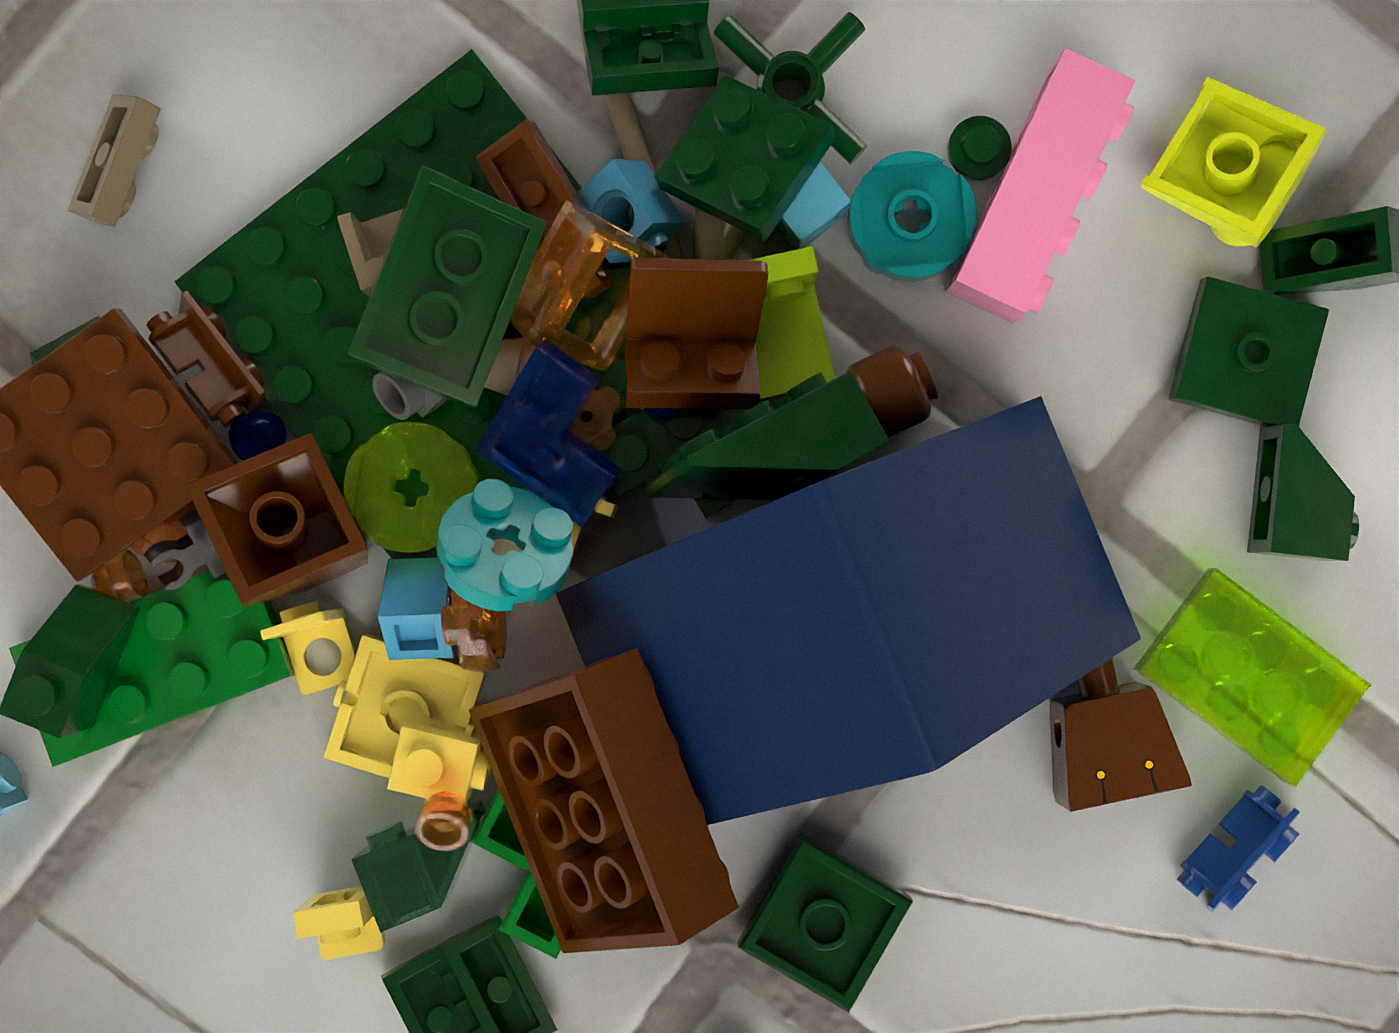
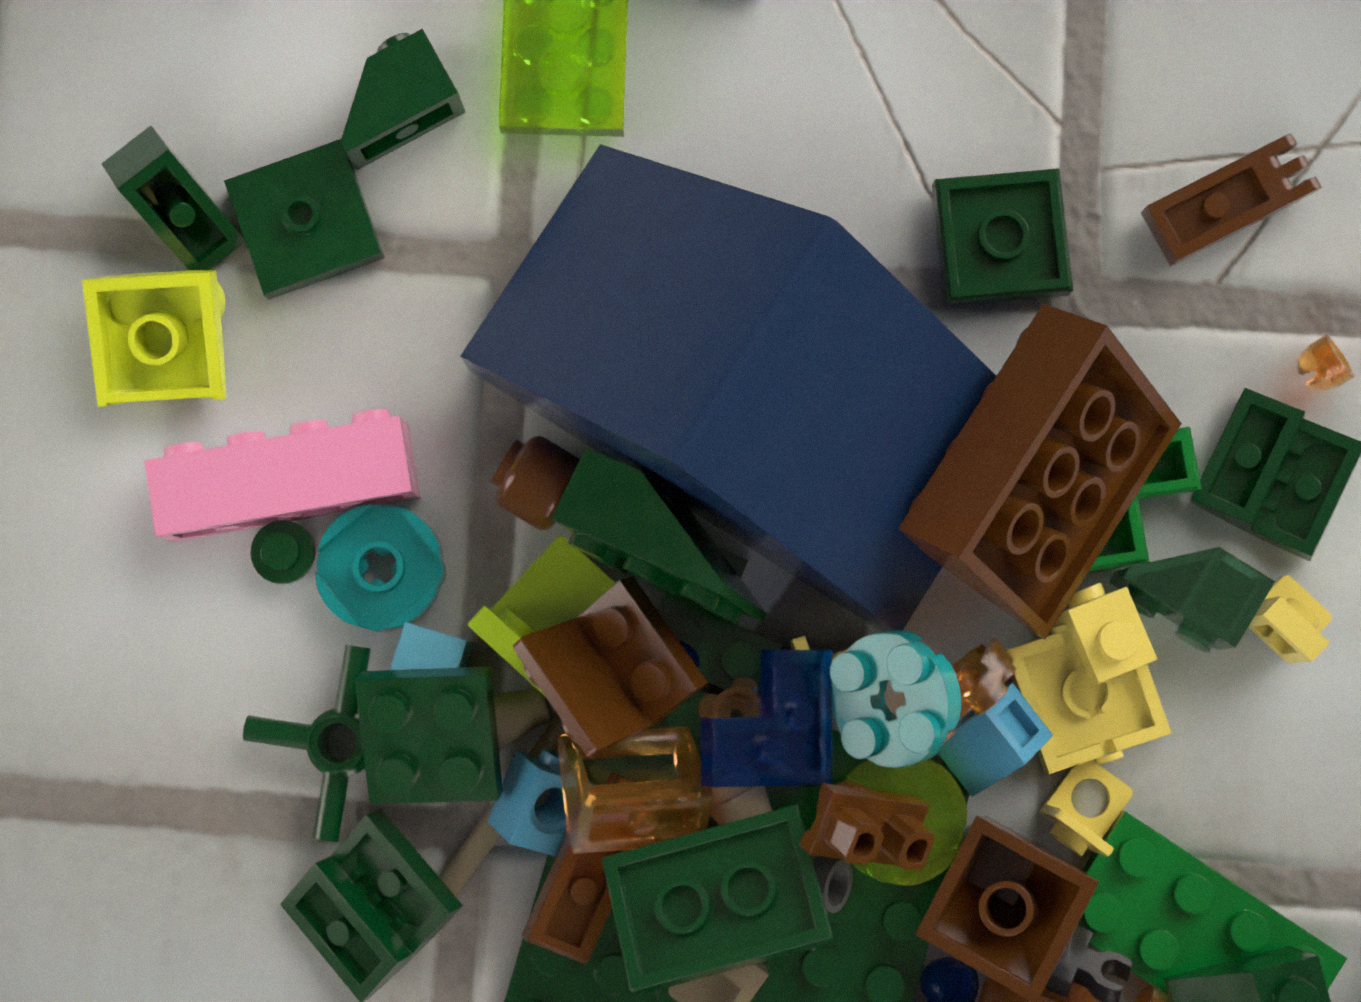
camera: 125 degrees left, 5 degrees down
(418, 449) = (869, 827): none -> reddish brown hips
(444, 821) = (1149, 591): clear orange hinge -> none
(1112, 743) = (698, 110): reddish brown torso -> none

